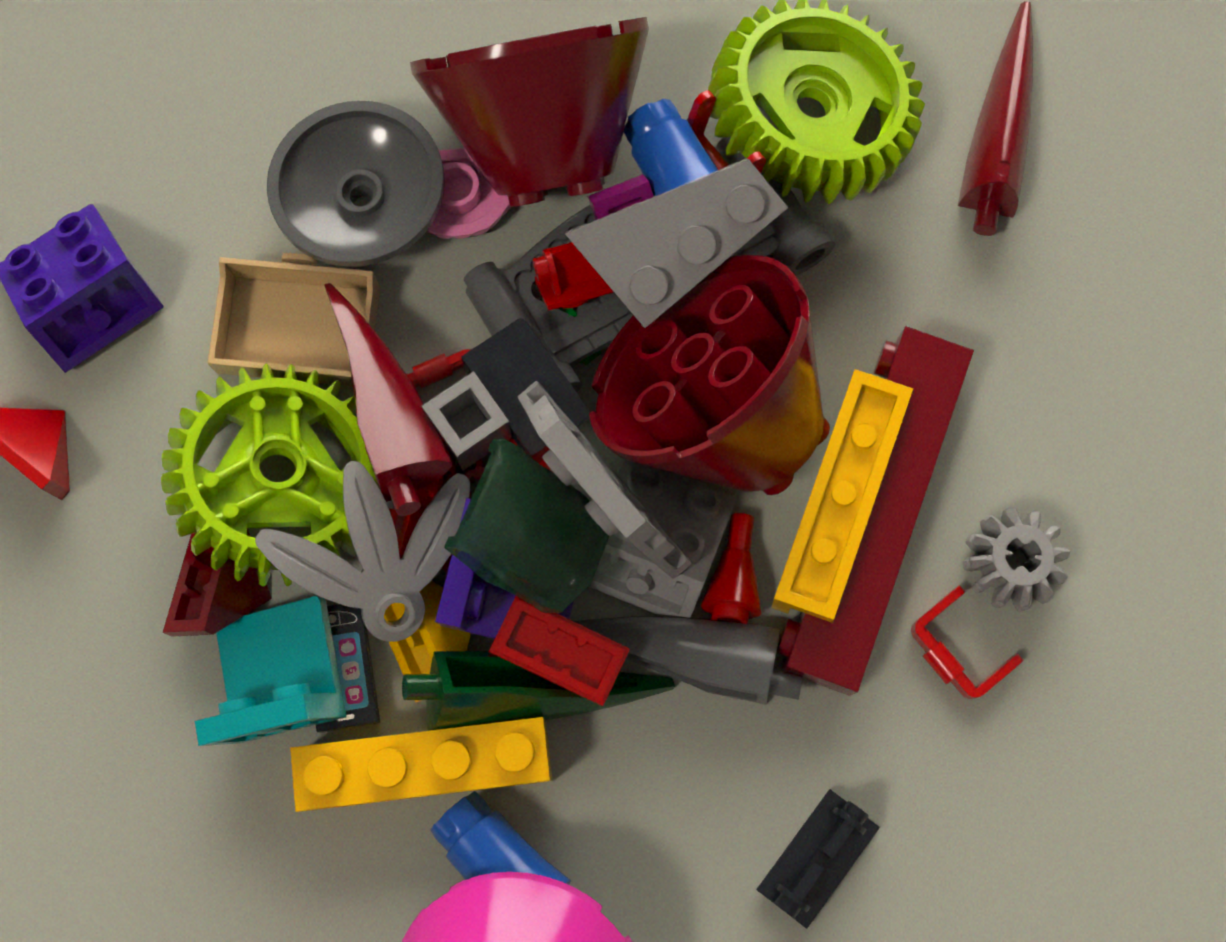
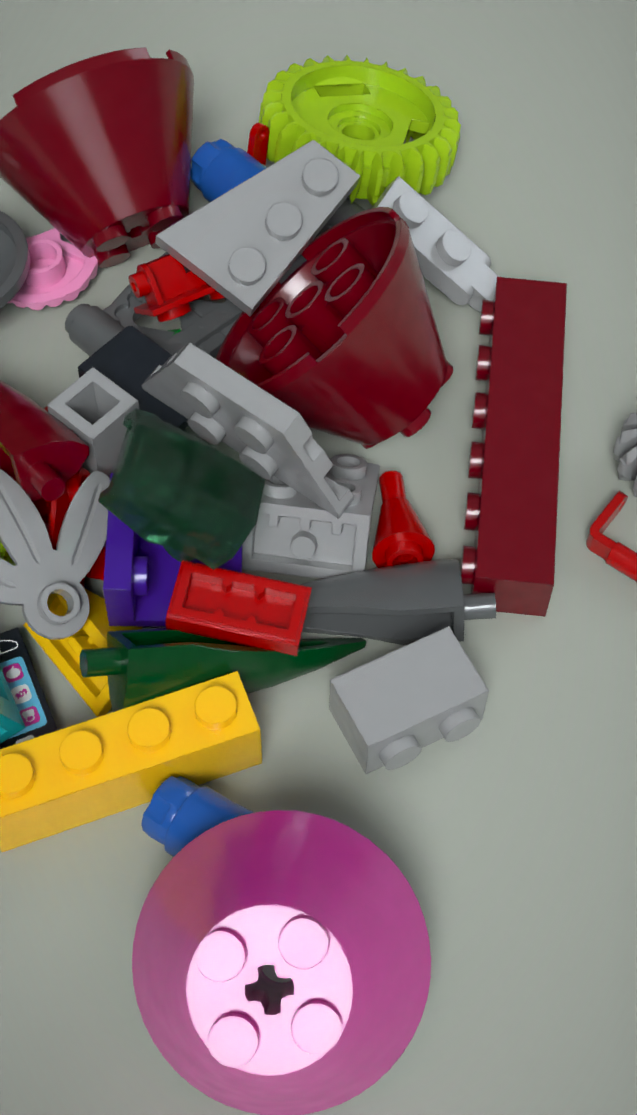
camera: 15 degrees left, 20 degrees down
(695, 766) = (408, 701): none -> light grey brick
(818, 858) = (564, 765): black hinge -> none
(842, 496) = (482, 424): yellow fence -> none
(852, 266) = (442, 250): none -> light grey hinge
(1002, 131) = (533, 141): dark red piece -> none

